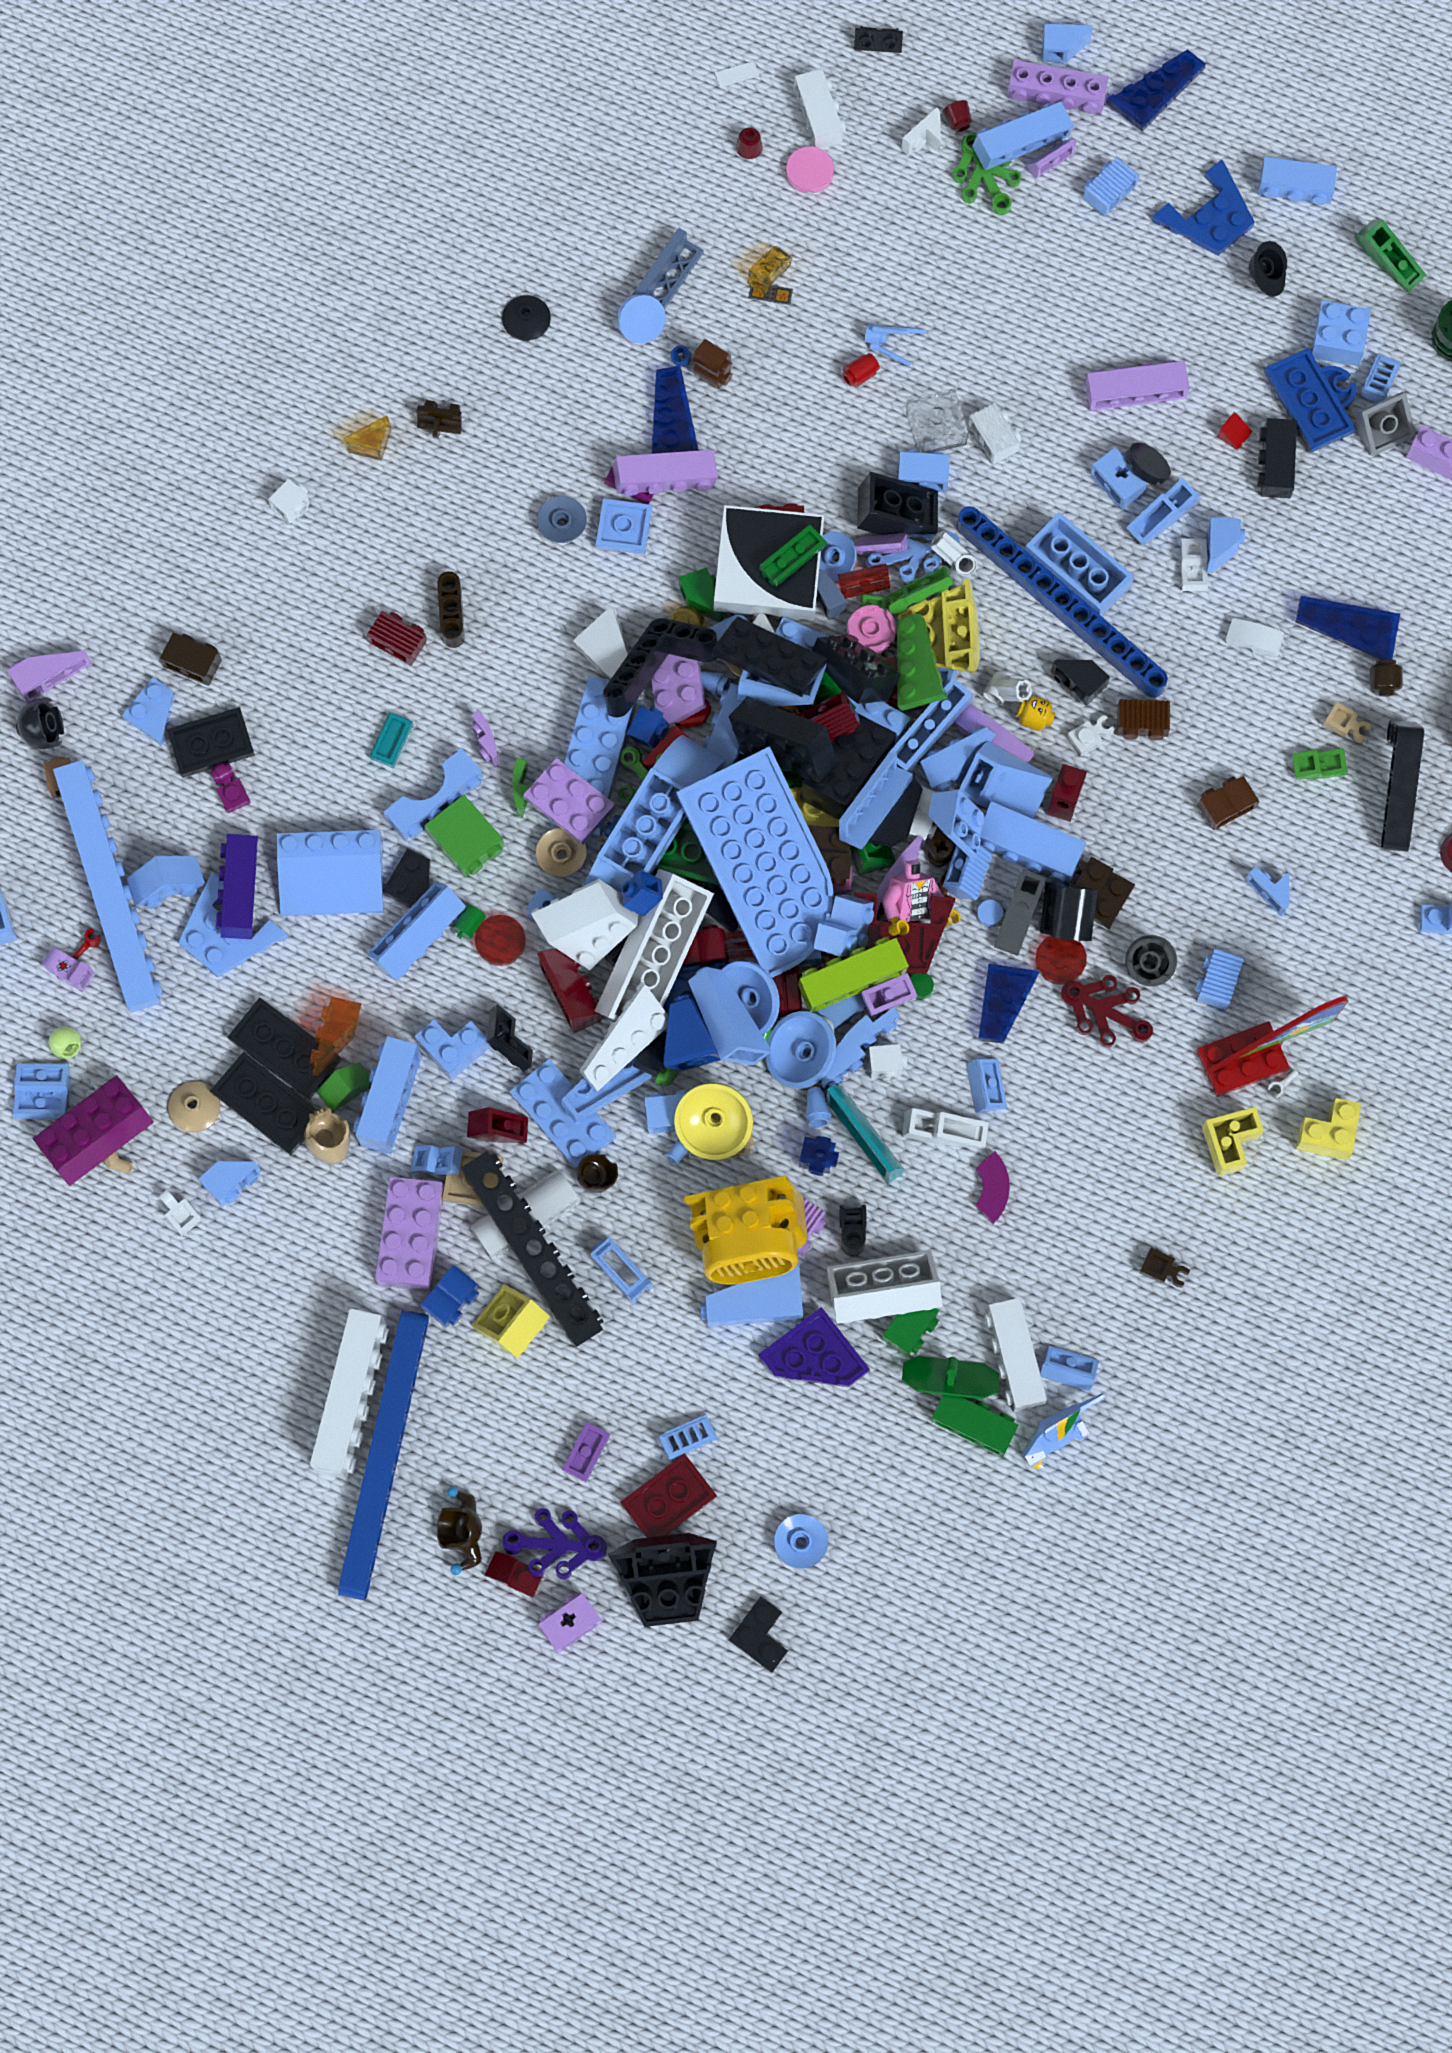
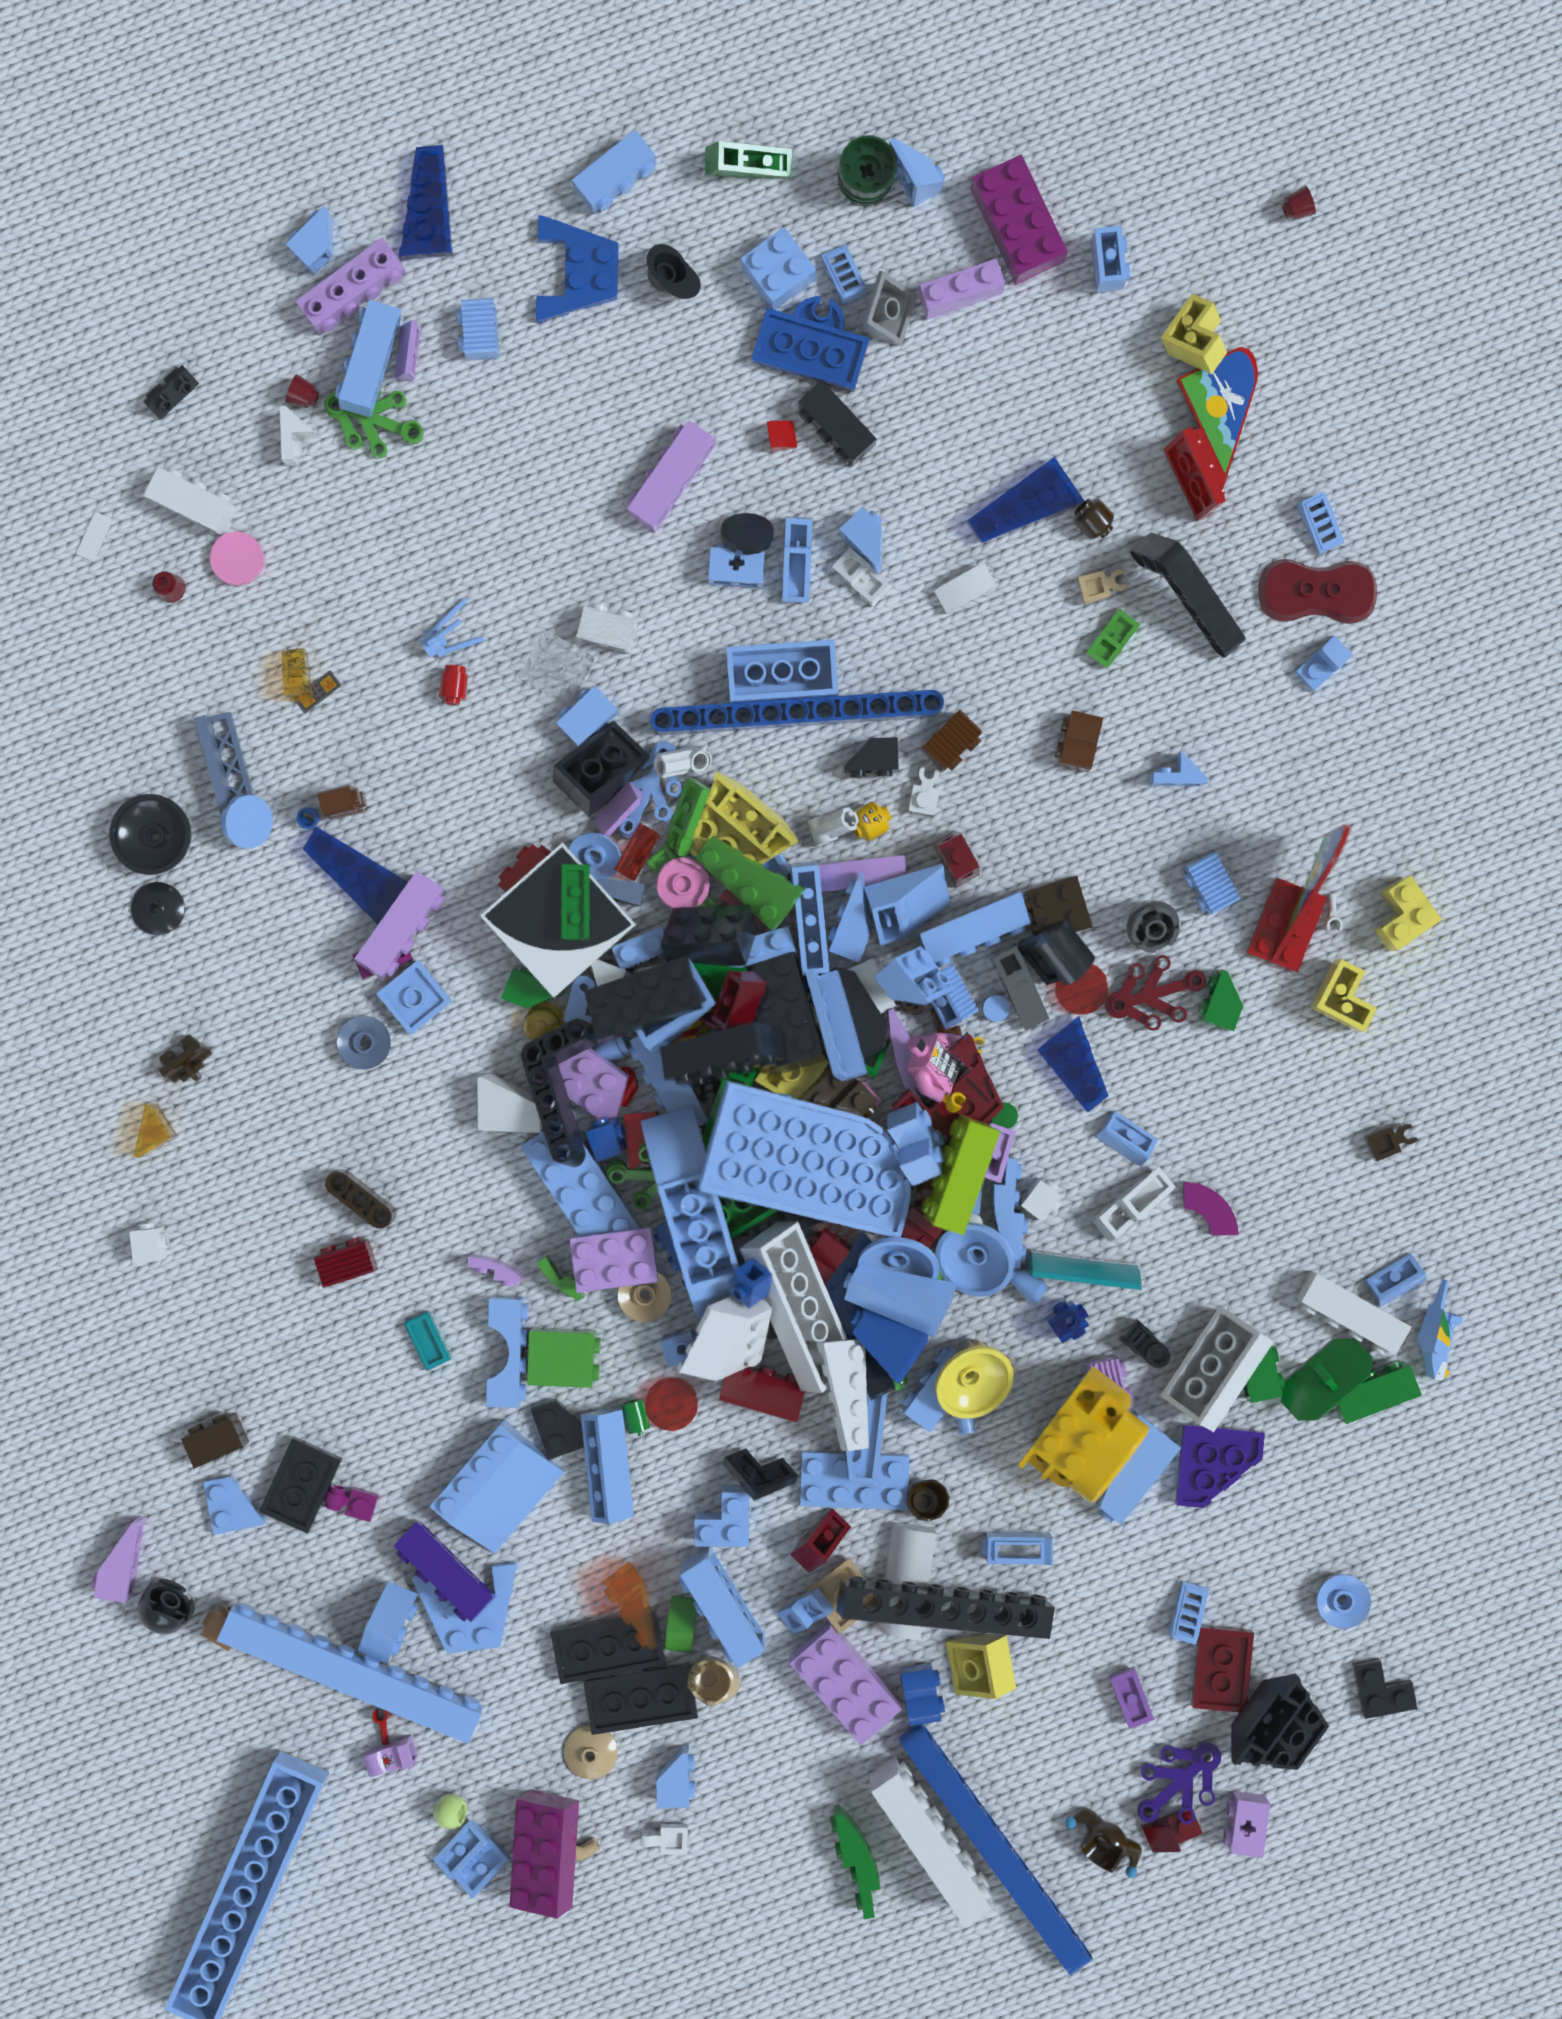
camera: 50 degrees left, 15 degrees up
(292, 1352) = (858, 1856): none -> green slope
(569, 255) = (133, 830): none -> black dish
(1143, 1063) = (1222, 1004): none -> green slope

